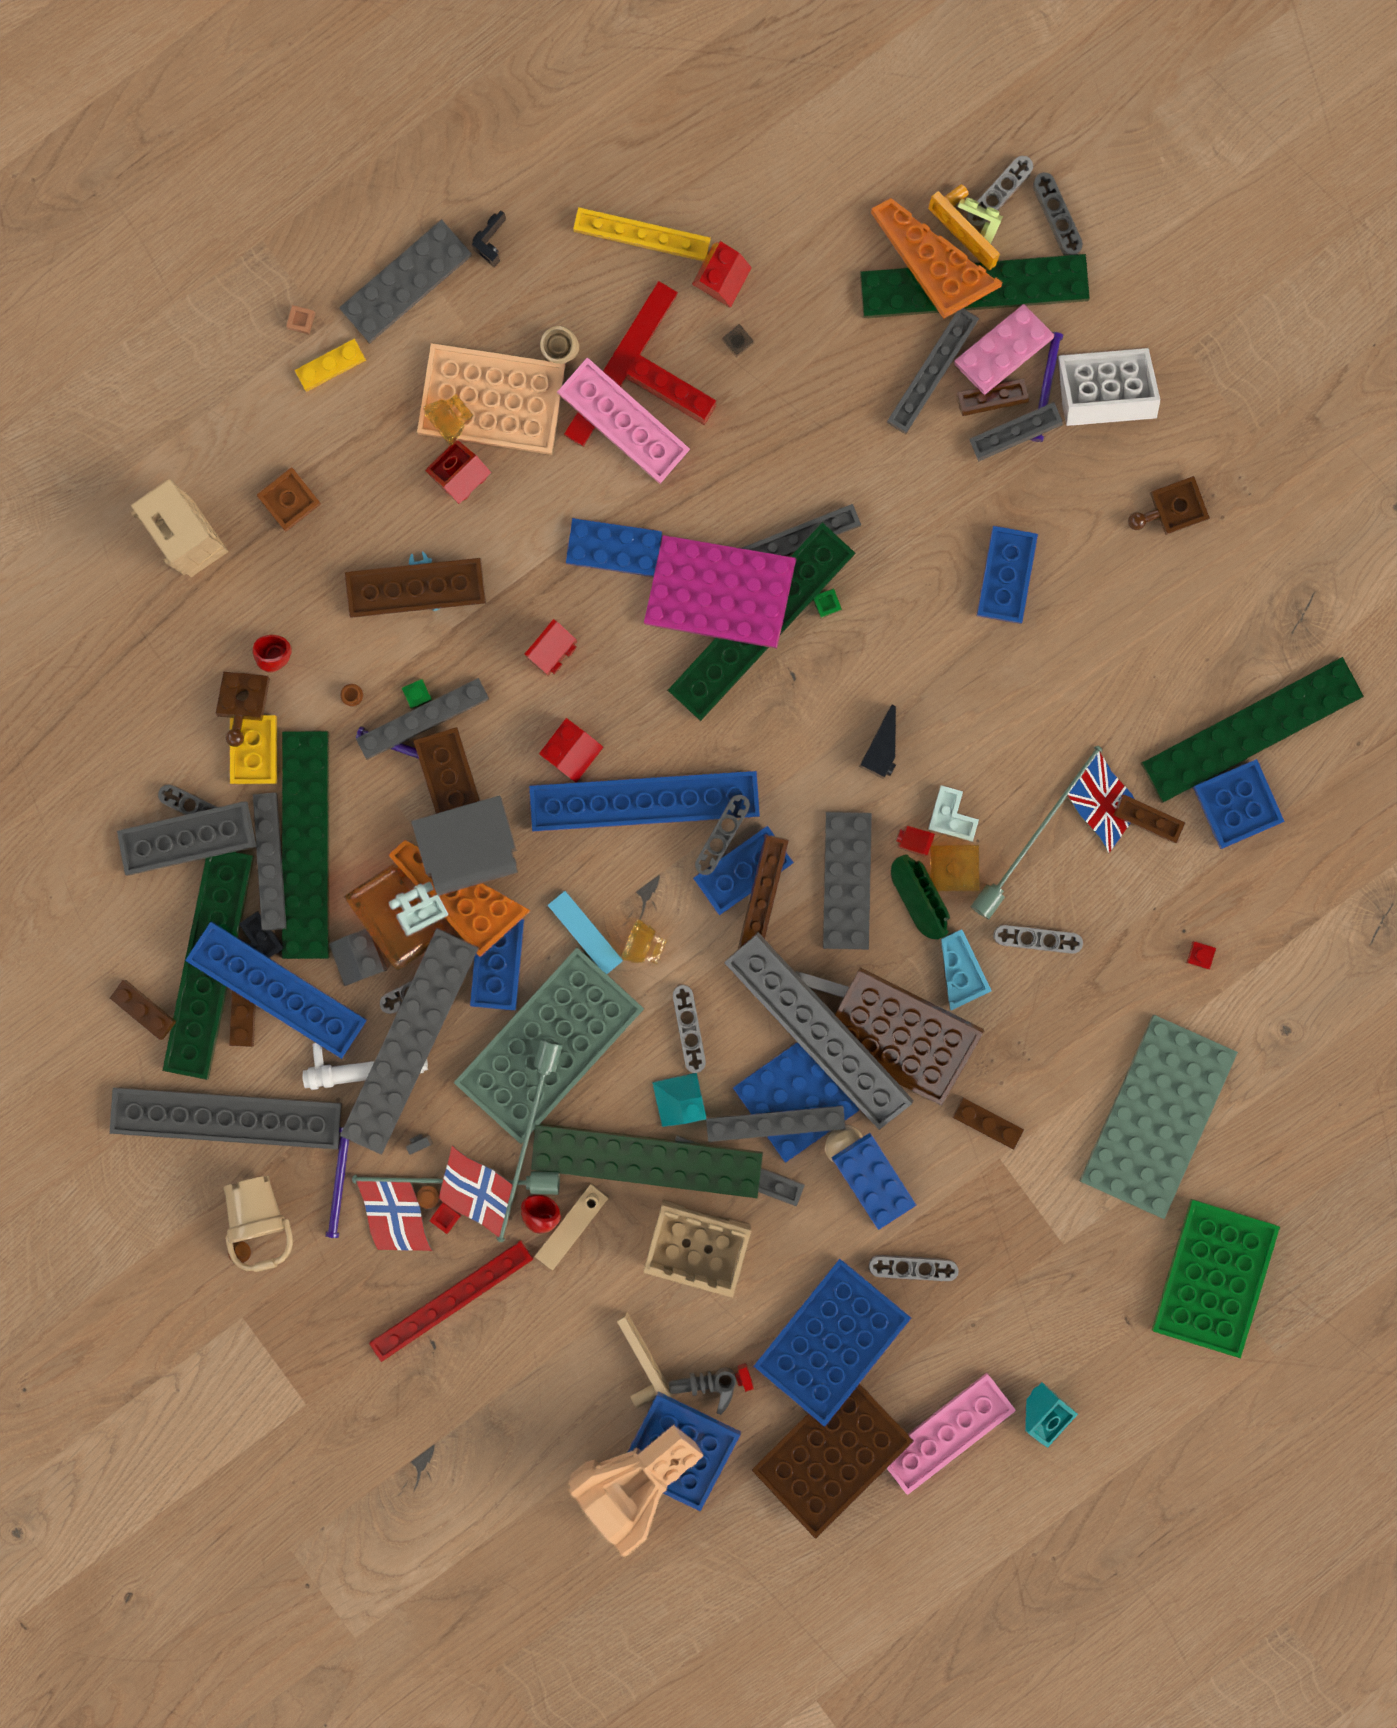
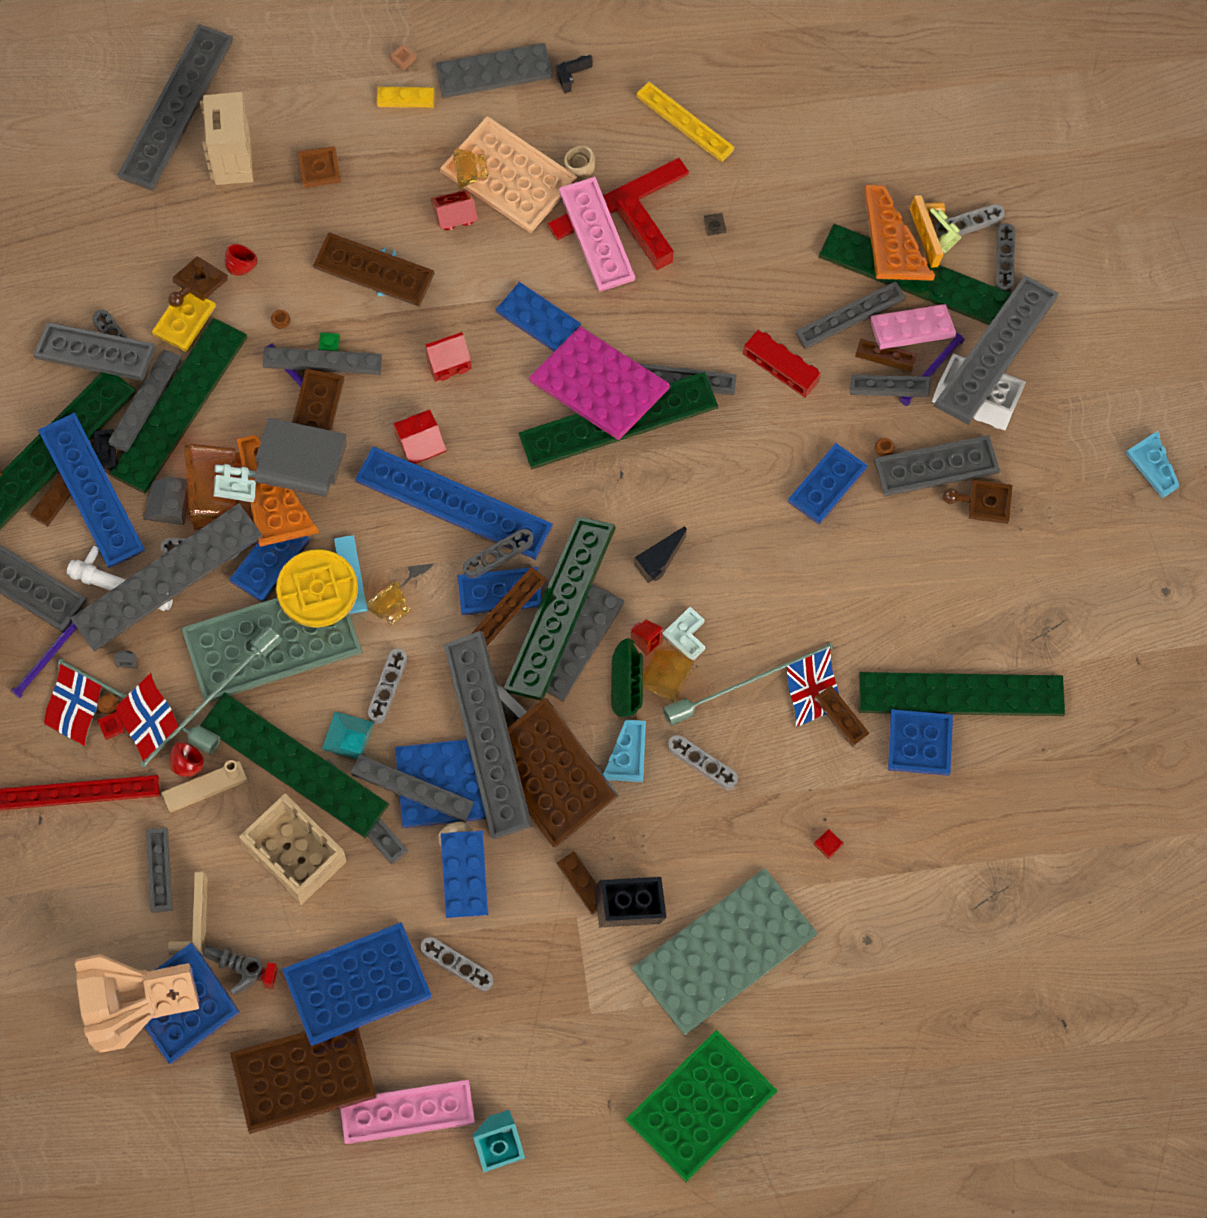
camera: 25 degrees right, 20 degrees down
(96, 510) = (175, 107): none -> dark grey plate
(564, 971) = (317, 588): none -> yellow plate
(579, 1333) = (159, 870): none -> dark grey plate
(722, 273) = (729, 173): red slope -> none
(815, 858) = (559, 608): none -> dark green plate
(827, 603) = (677, 434): green plate -> none
(892, 465) = (781, 363): none -> red brick
(1043, 502) = (884, 447): none -> dark orange plate
(1048, 1124) = (630, 902): none -> black brick
(1106, 494) = (936, 465): none -> dark grey plate
(1108, 334) = (996, 350): none -> dark grey plate
(1321, 372) = (1152, 462): none -> medium azure wing

